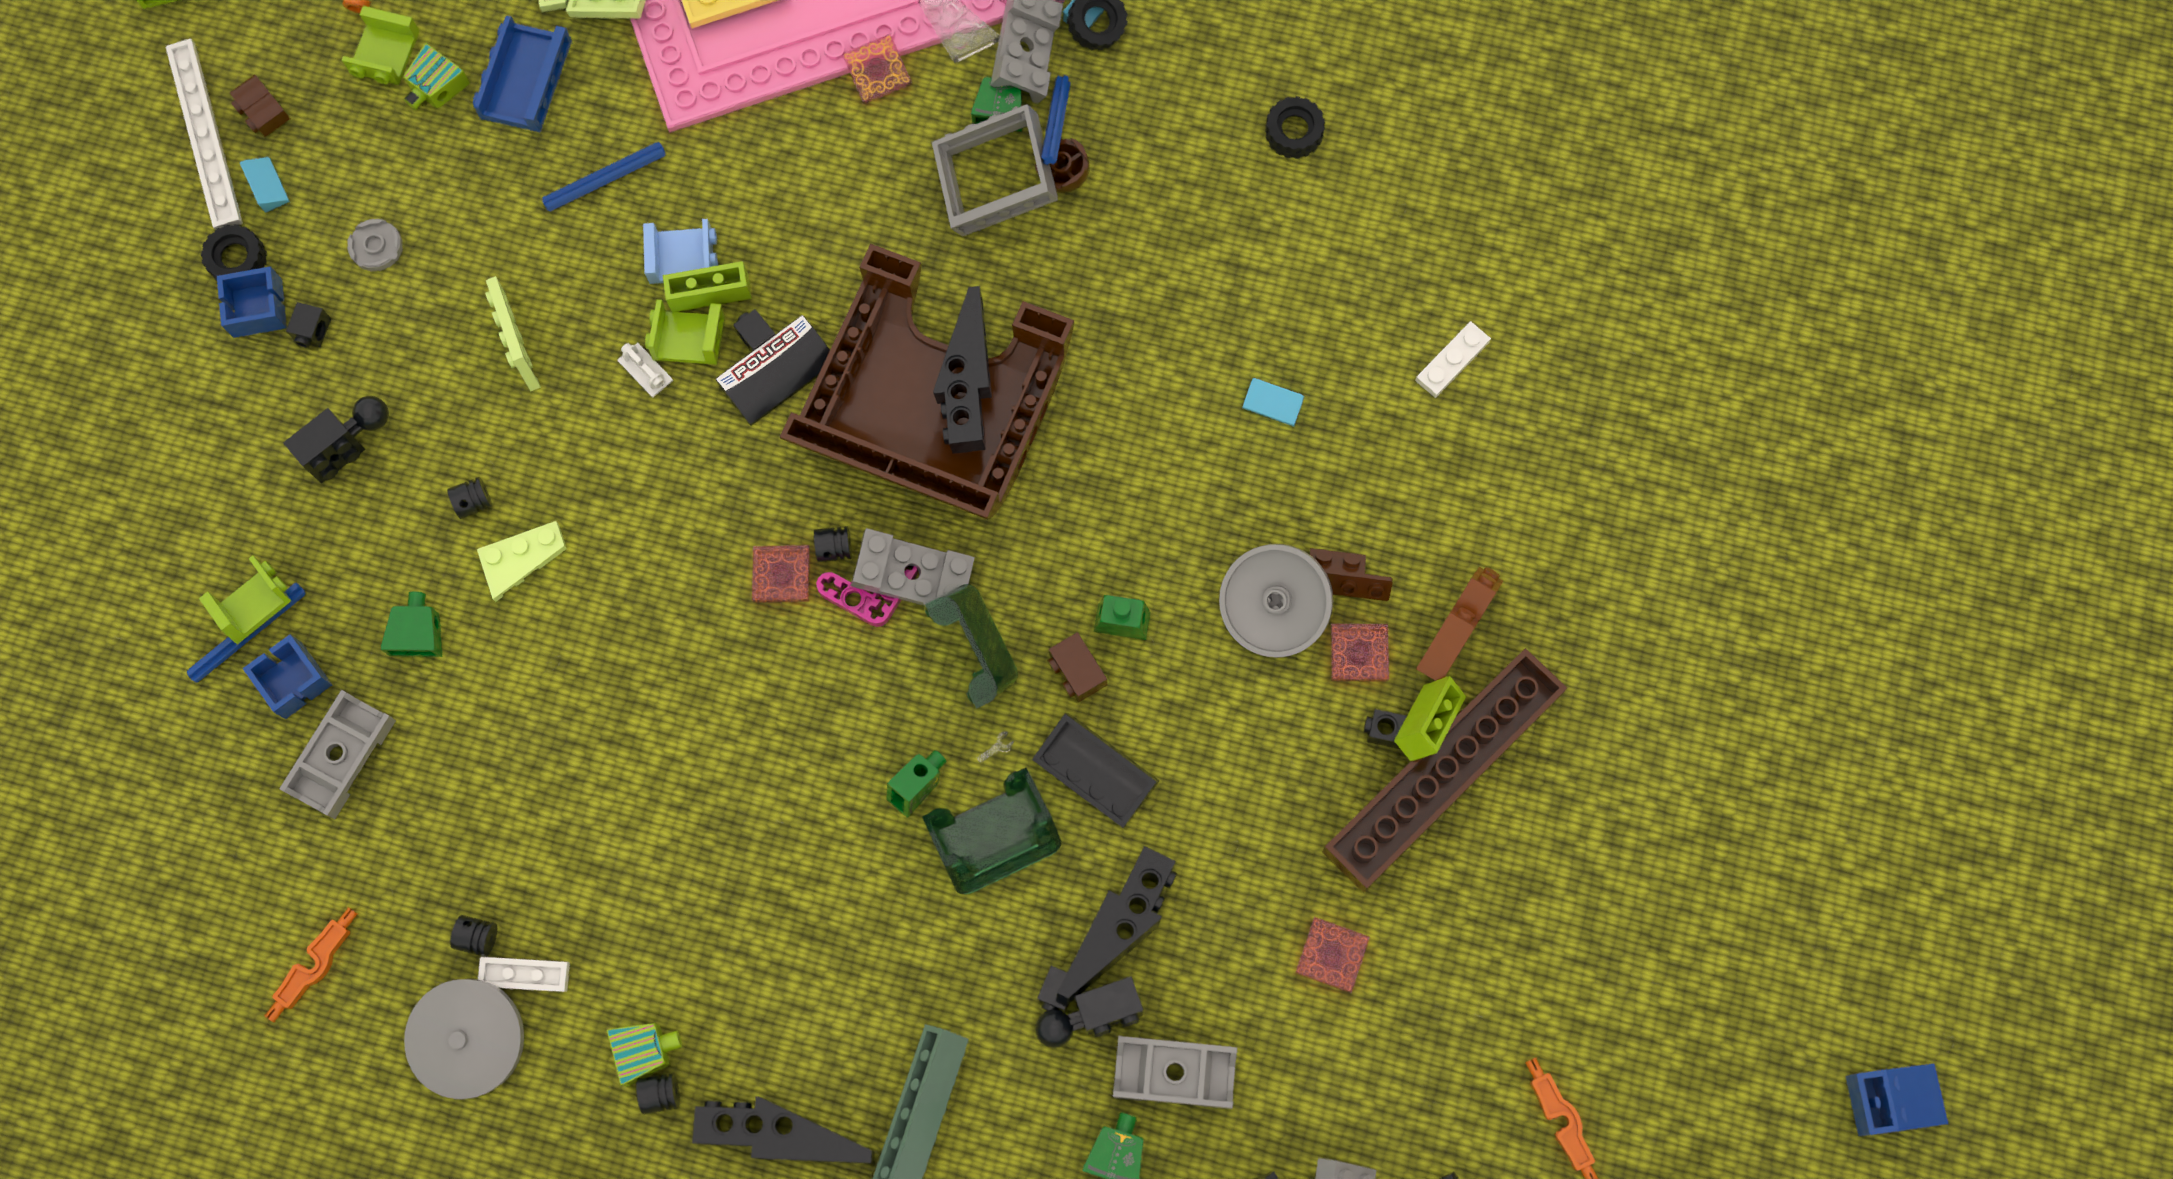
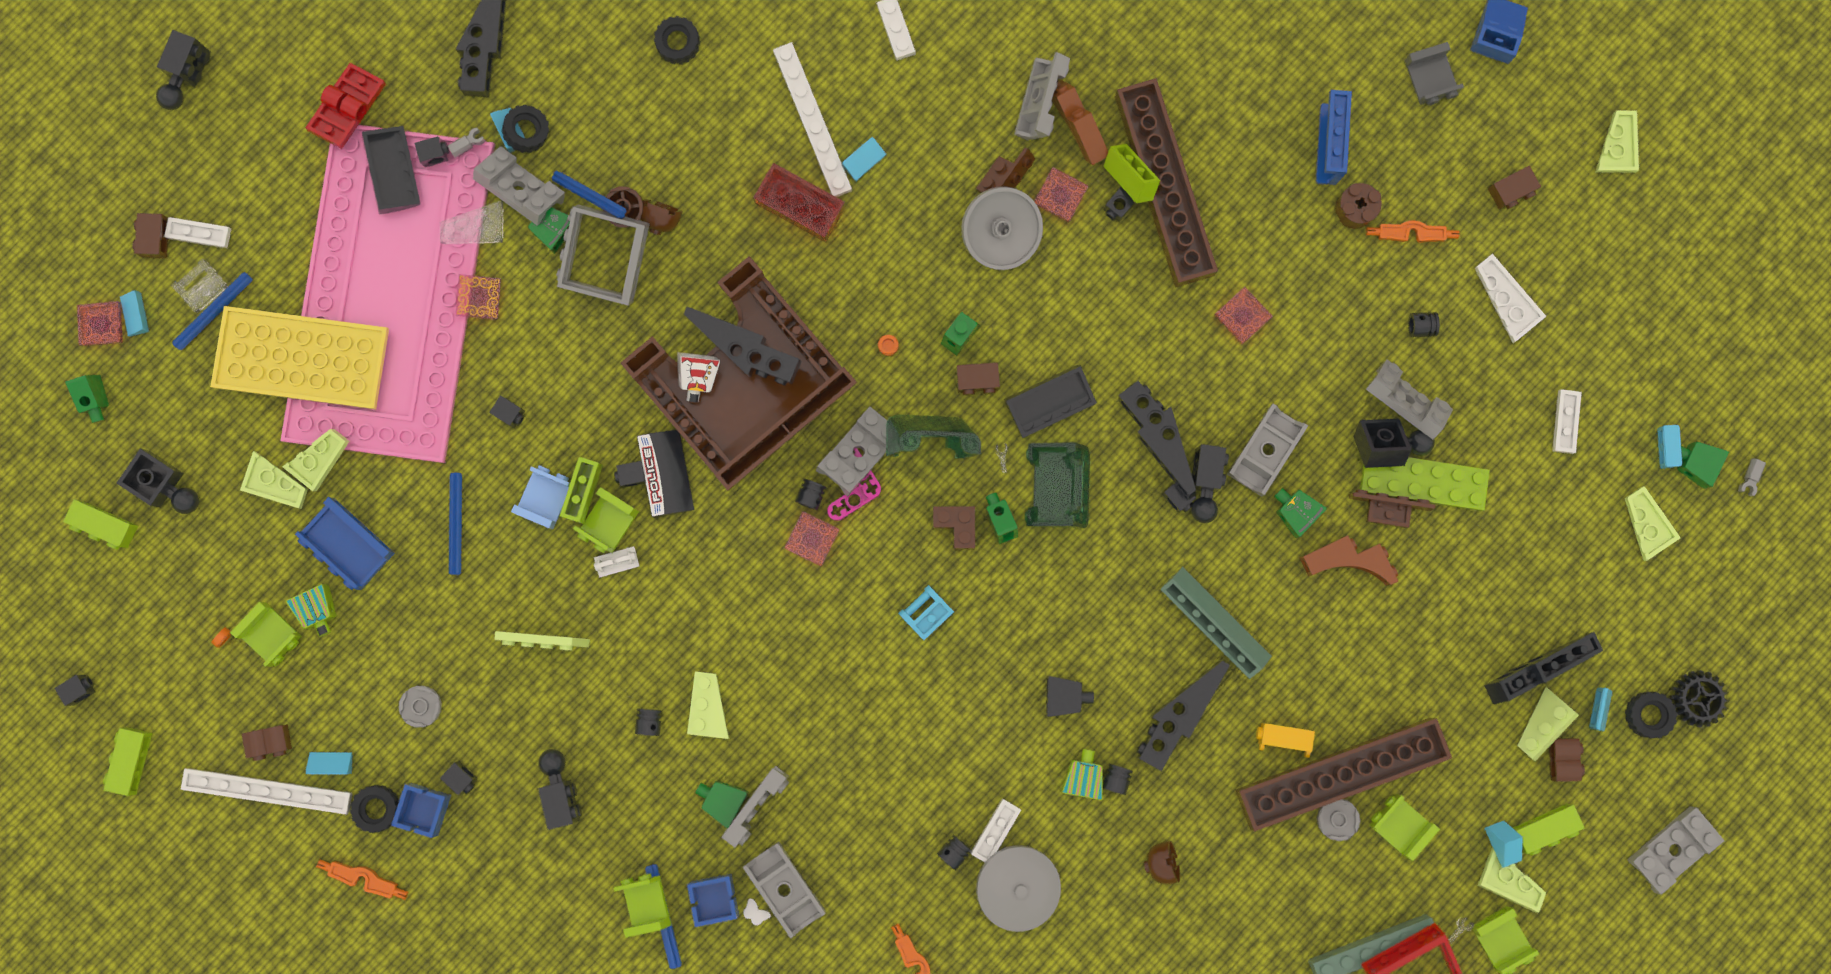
camera: 65 degrees left, 10 degrees up
(148, 297) = (351, 875): none -> orange piece
(296, 733) = (752, 912): none -> white sticker
(390, 663) = (739, 830): none -> light grey piece
(732, 975) = (1065, 696): none -> black torso
(753, 761) = (931, 617): none -> medium azure plate
(760, 165) = (507, 412): none -> black brick
(887, 739) = (961, 520): none -> reddish brown brick
(908, 339) = (696, 373): none -> torso
(1063, 544) = (888, 345): none -> orange tile
(1075, 211) = (660, 216): none -> reddish brown cylinder
(1177, 354) = (799, 202): none -> clear red brick
(1286, 322) = (812, 120): none -> white plate
(1428, 571) = (1034, 118): none -> light grey piece
(1563, 1015) = (1366, 197): none -> reddish brown brick
(1622, 948) = (1333, 138): none -> blue panel
(1784, 1042) = (1432, 74): none -> dark grey panel

